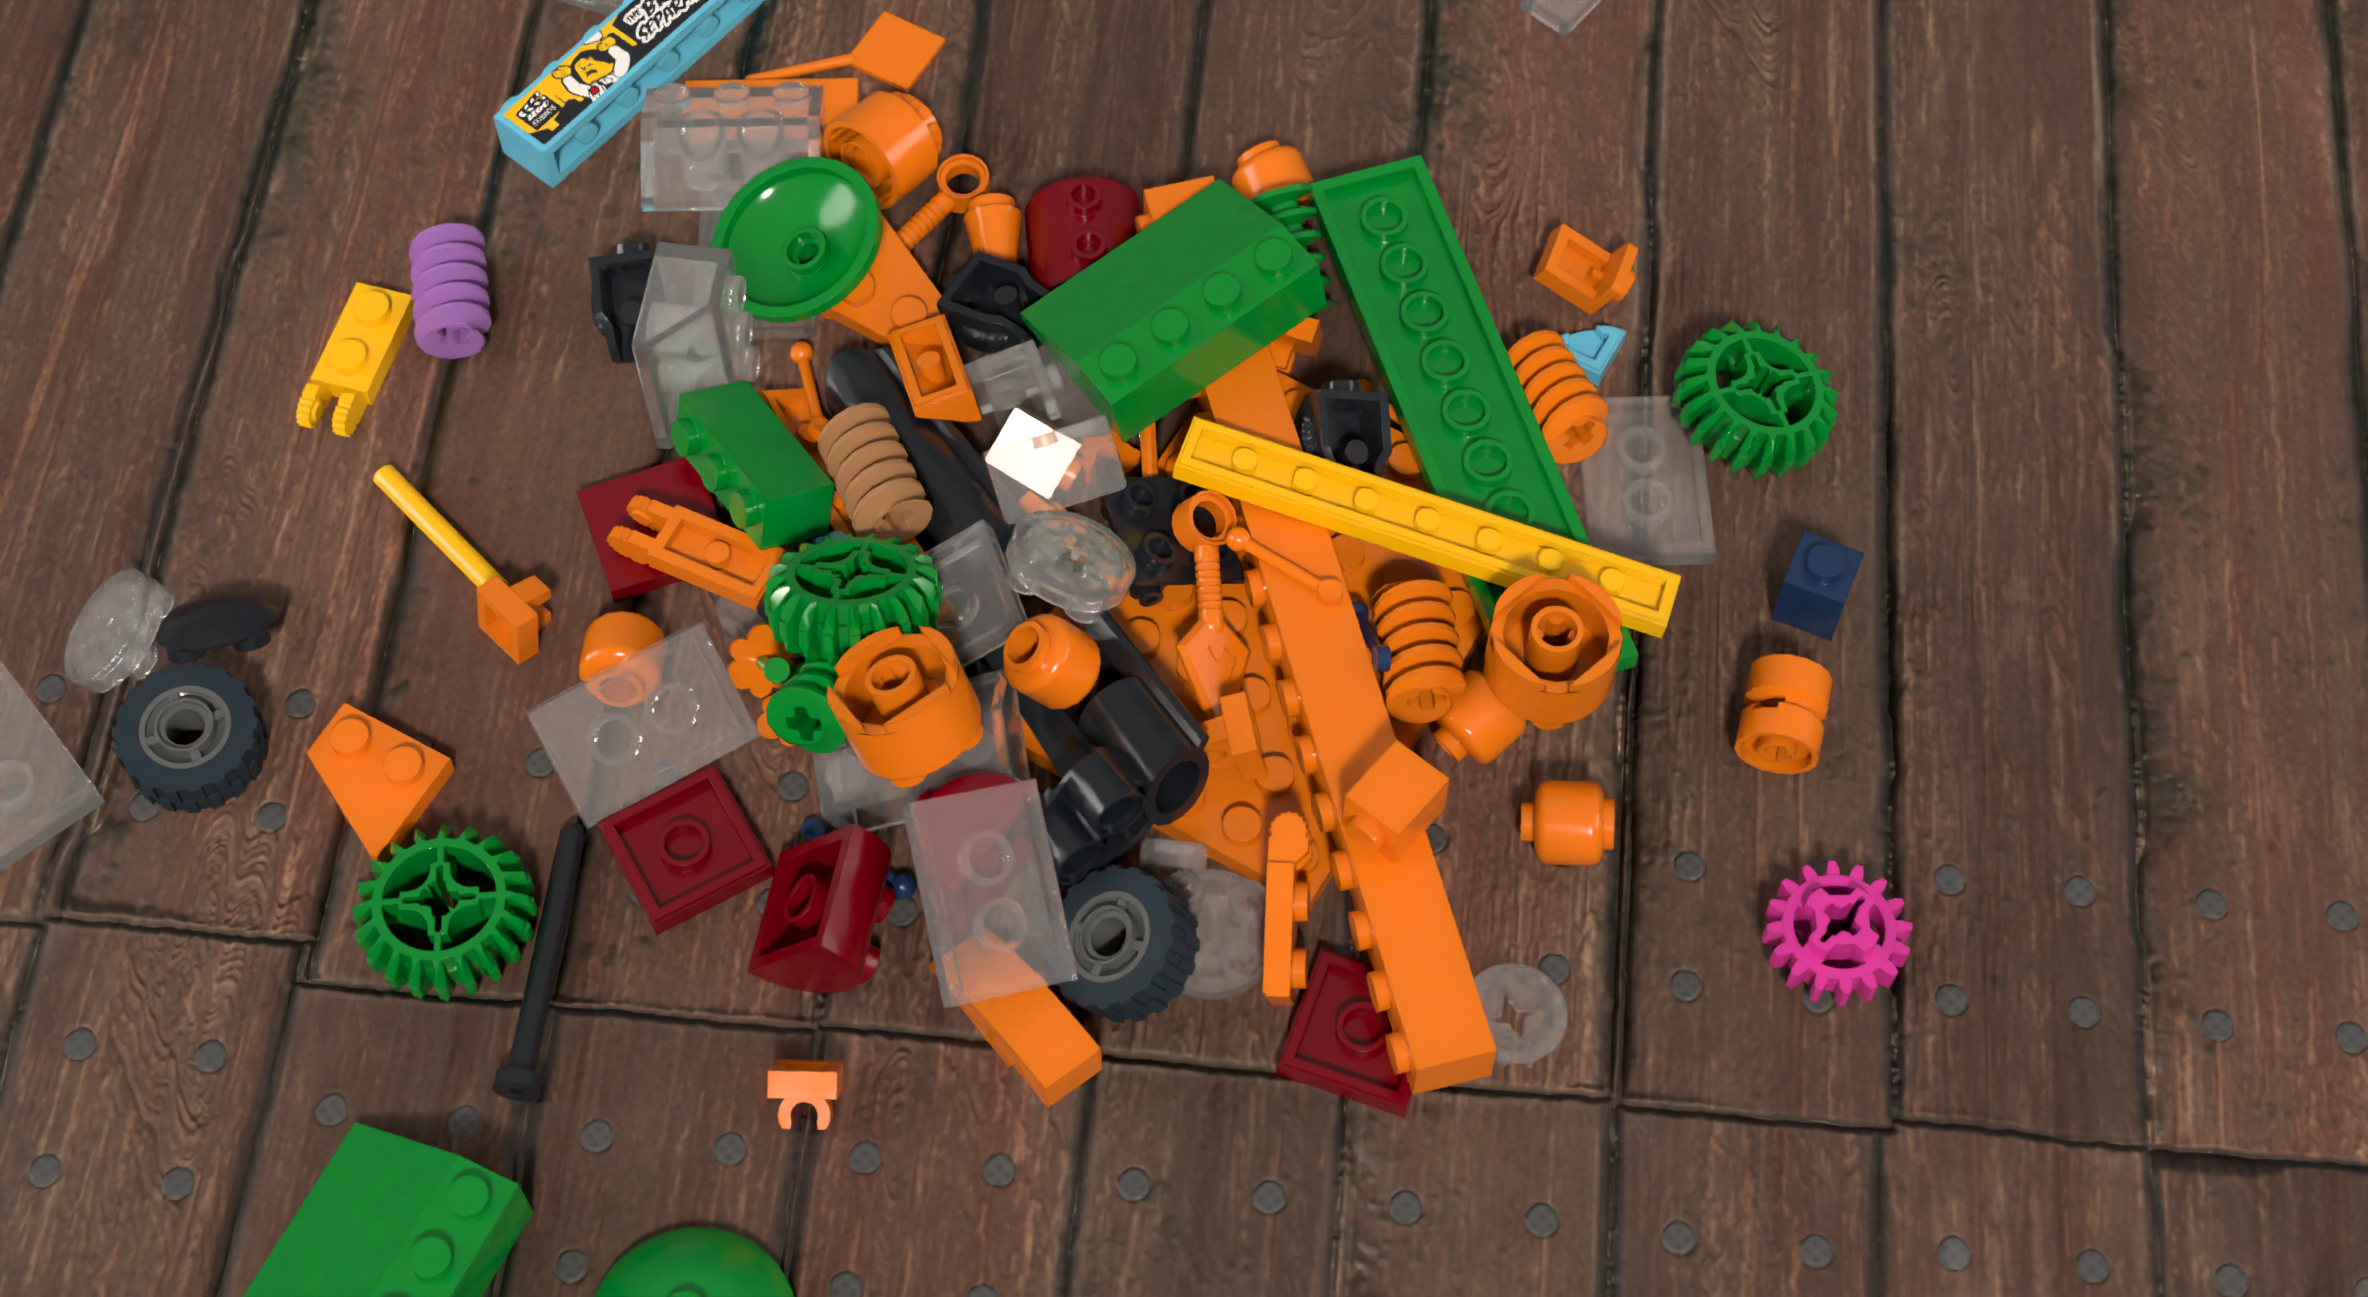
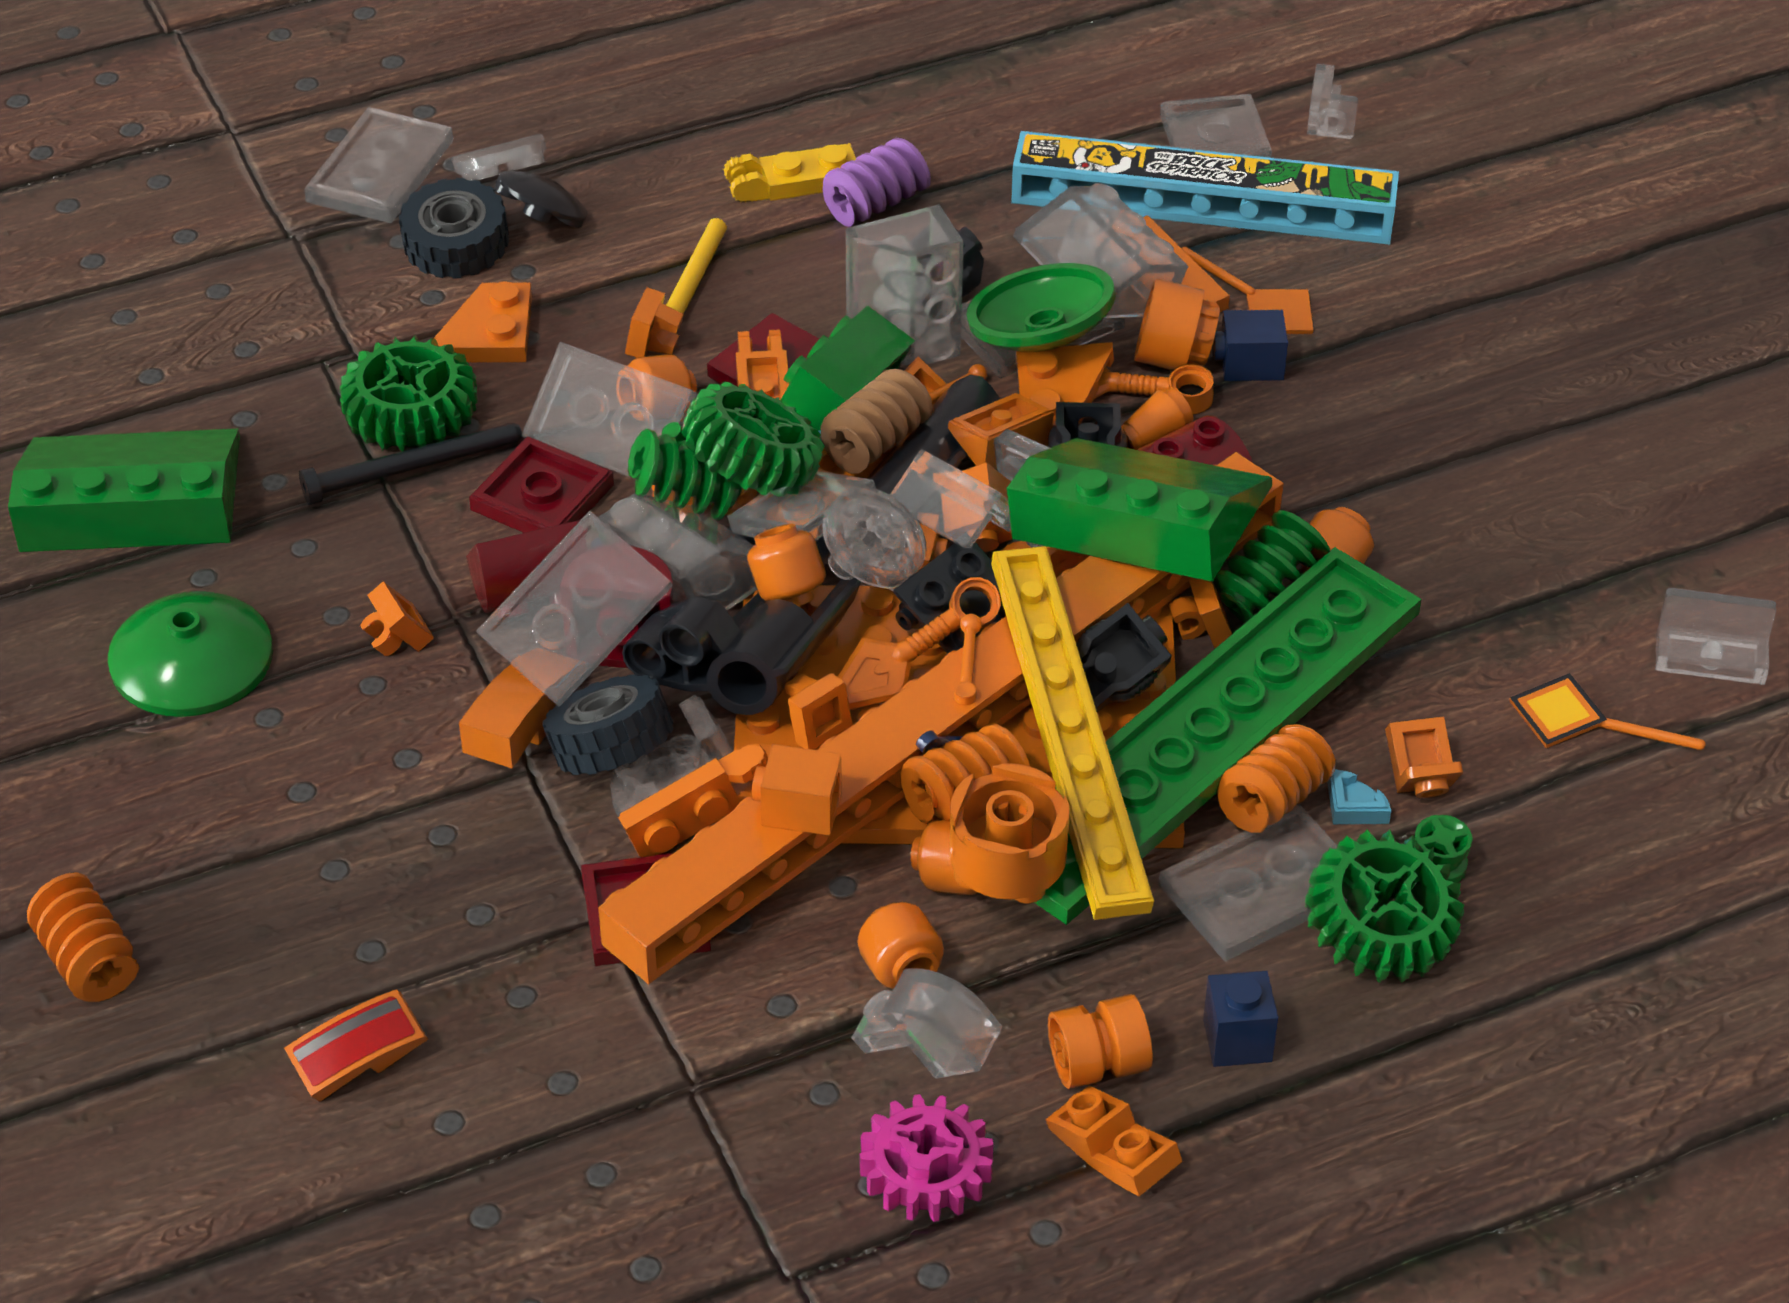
camera: 60 degrees right, 15 degrees down
(905, 704) = (675, 487): orange brick -> none
(955, 92) = (1251, 345): none -> dark blue brick
(1527, 992) = (717, 967): clear gear -> none
(1579, 133) = (1564, 710): none -> piece
(1678, 847) = (934, 1018): none -> clear brick
(1700, 303) = (1450, 842): none -> green wheel
(1886, 768) = (1111, 1142): none -> orange slope

